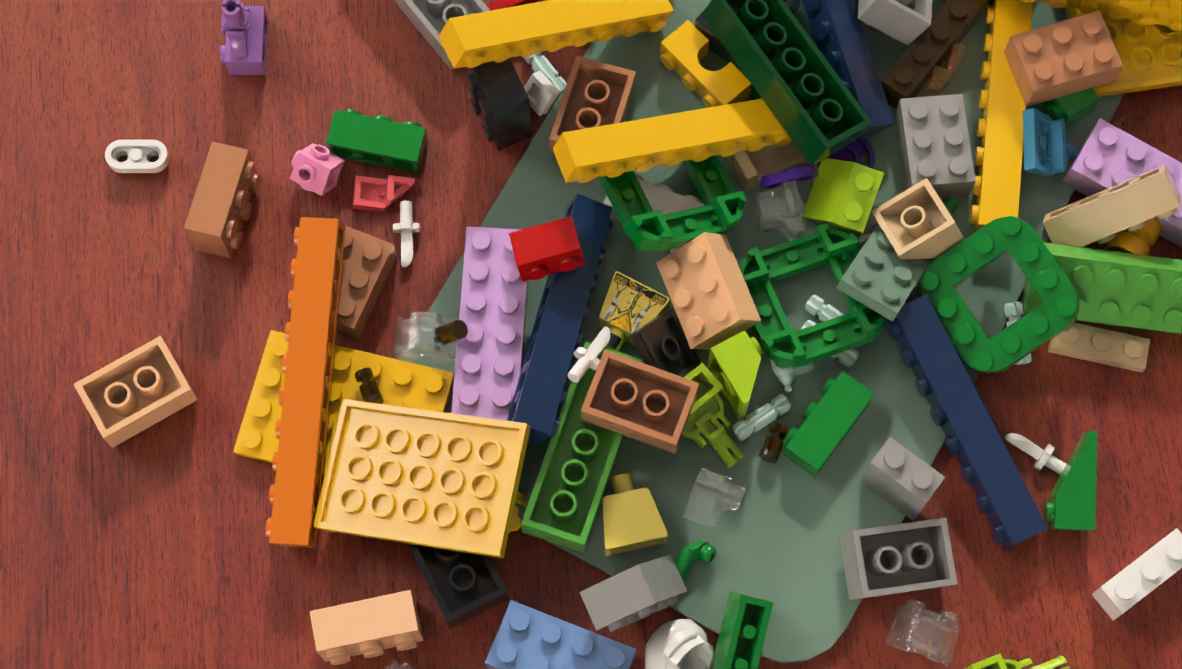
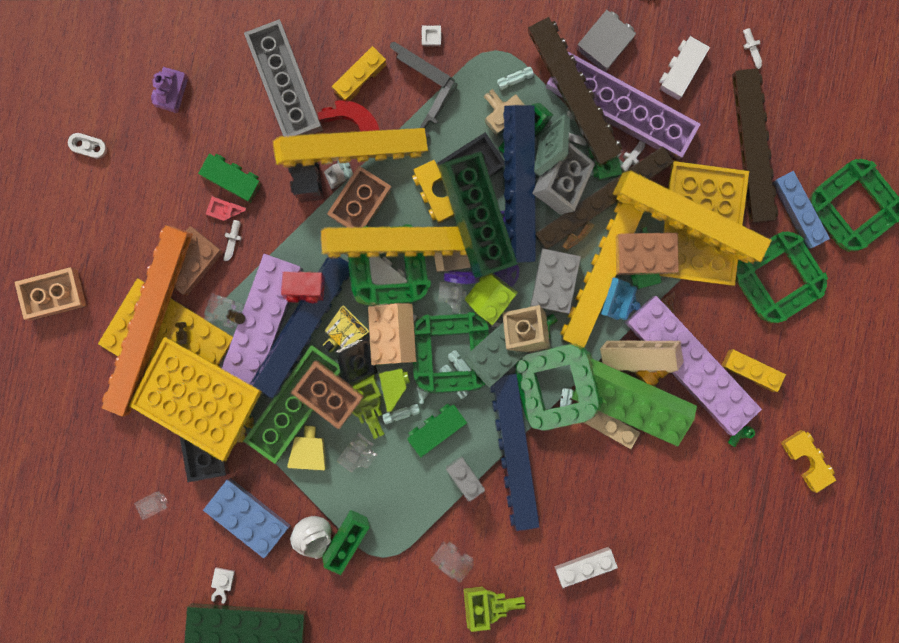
camera: 15 degrees right, 15 degrees up
(222, 200) = (128, 192): nougat brick -> none
(316, 169) = (189, 186): bright pink brick -> none
(366, 627) = (143, 471): light nougat brick -> none
(588, 357) = (308, 356): white piece -> none
(634, 594) = (294, 499): light grey brick -> none
(693, 553) = (342, 481): green arm -> none
(772, 444) = (402, 432): dark brown piece -> none
(898, 558) = (449, 520): light grey brick -> none
(1043, 457) = (554, 482): white piece -> none
(1074, 494) = (562, 509): green slope -> none

